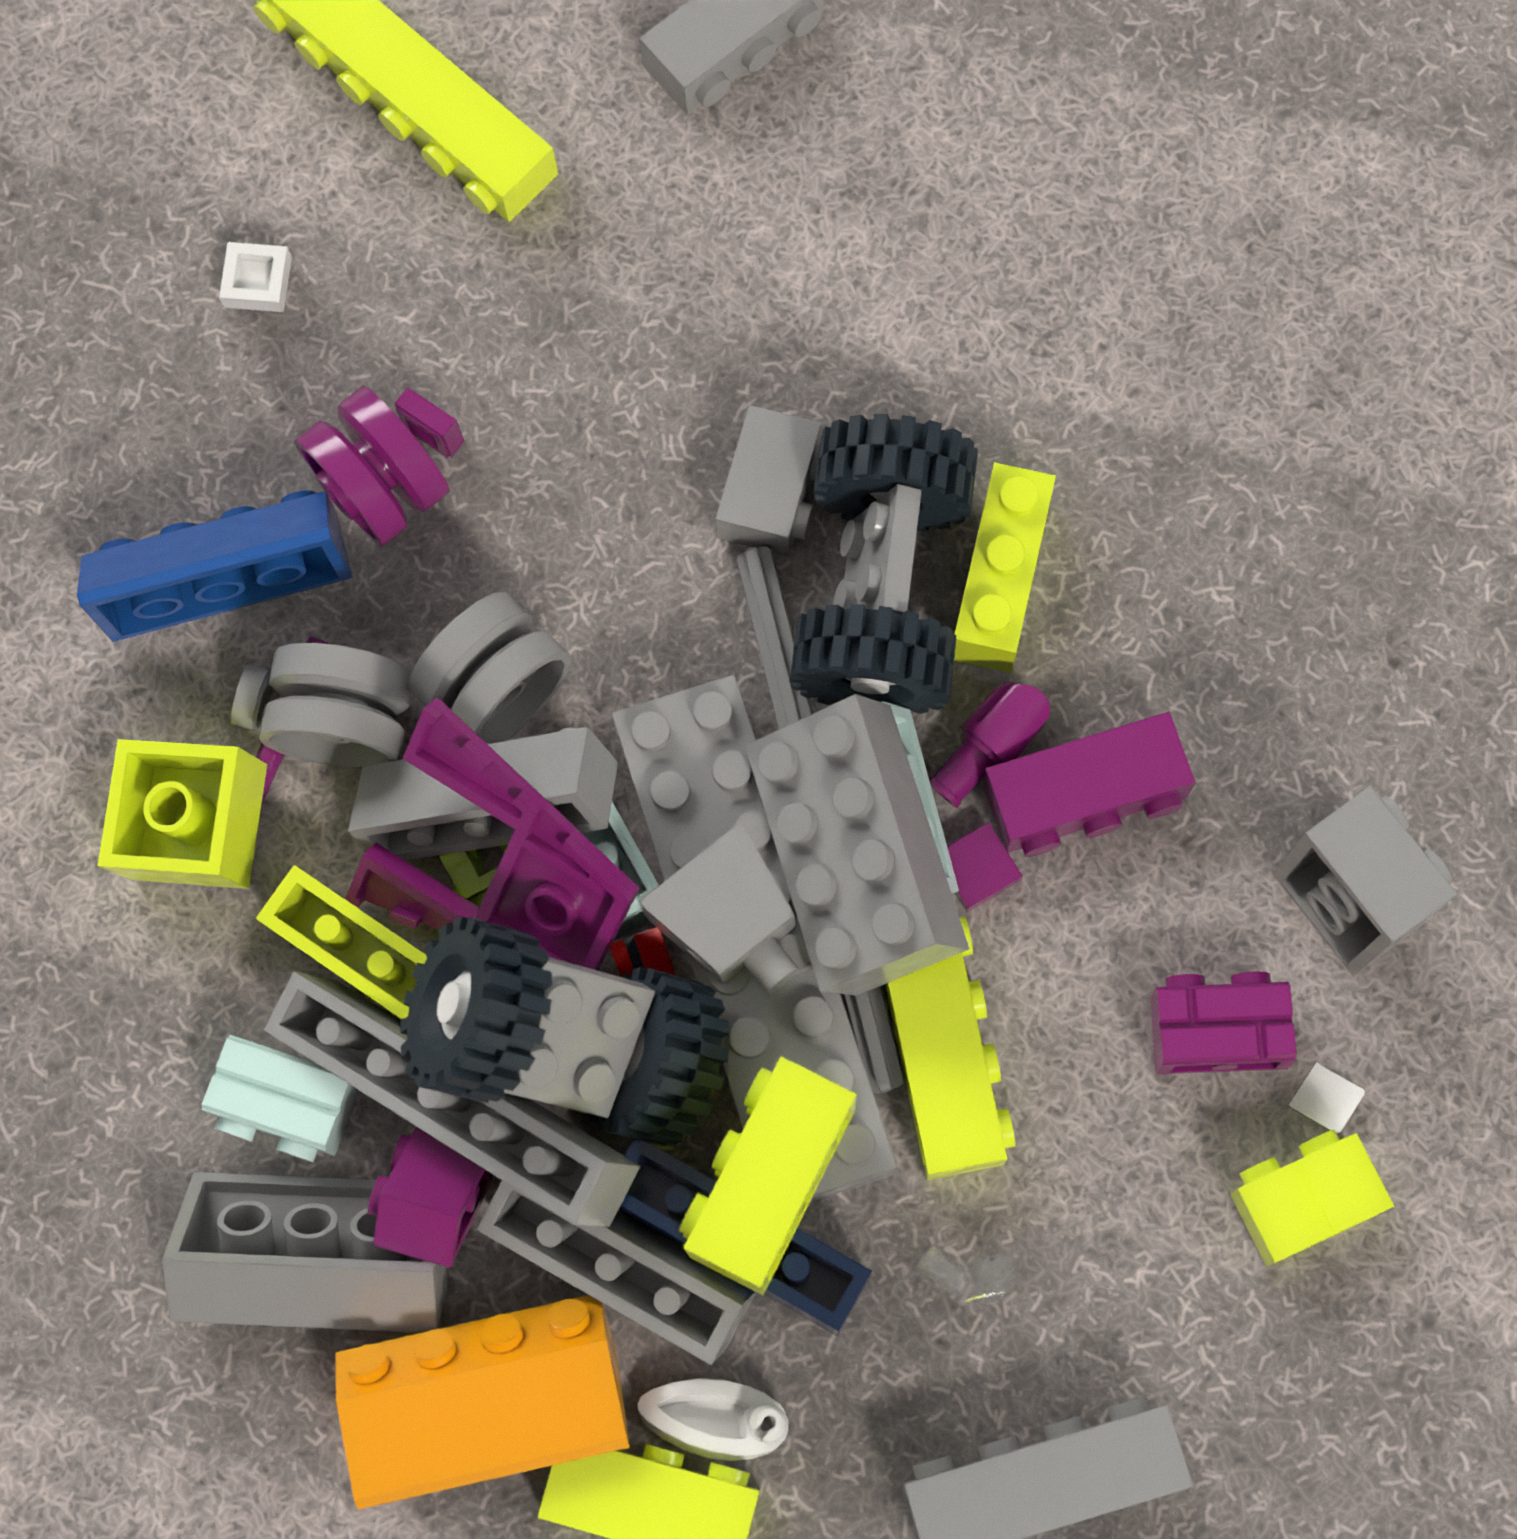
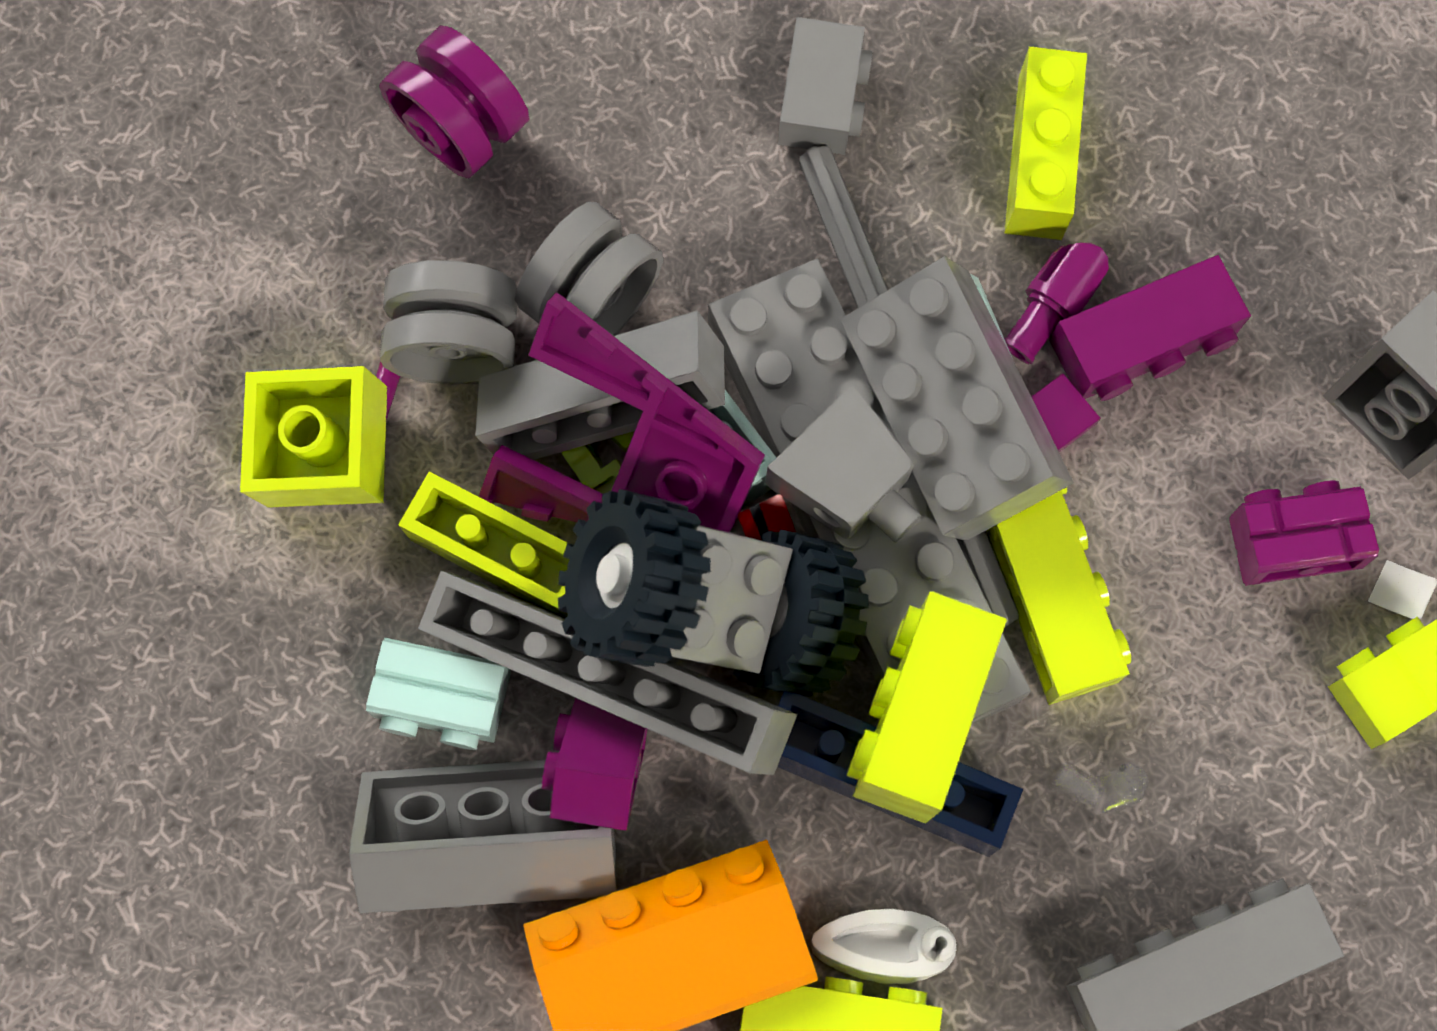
camera: 15 degrees left, 0 degrees up
(213, 565) = (315, 209): blue slope -> none
(251, 698) = (364, 326): light grey tile -> none
(429, 423) = (508, 58): magenta tile -> none
(626, 1270) = (784, 814): light grey brick -> none
(887, 485) = (935, 77): black plate -> none

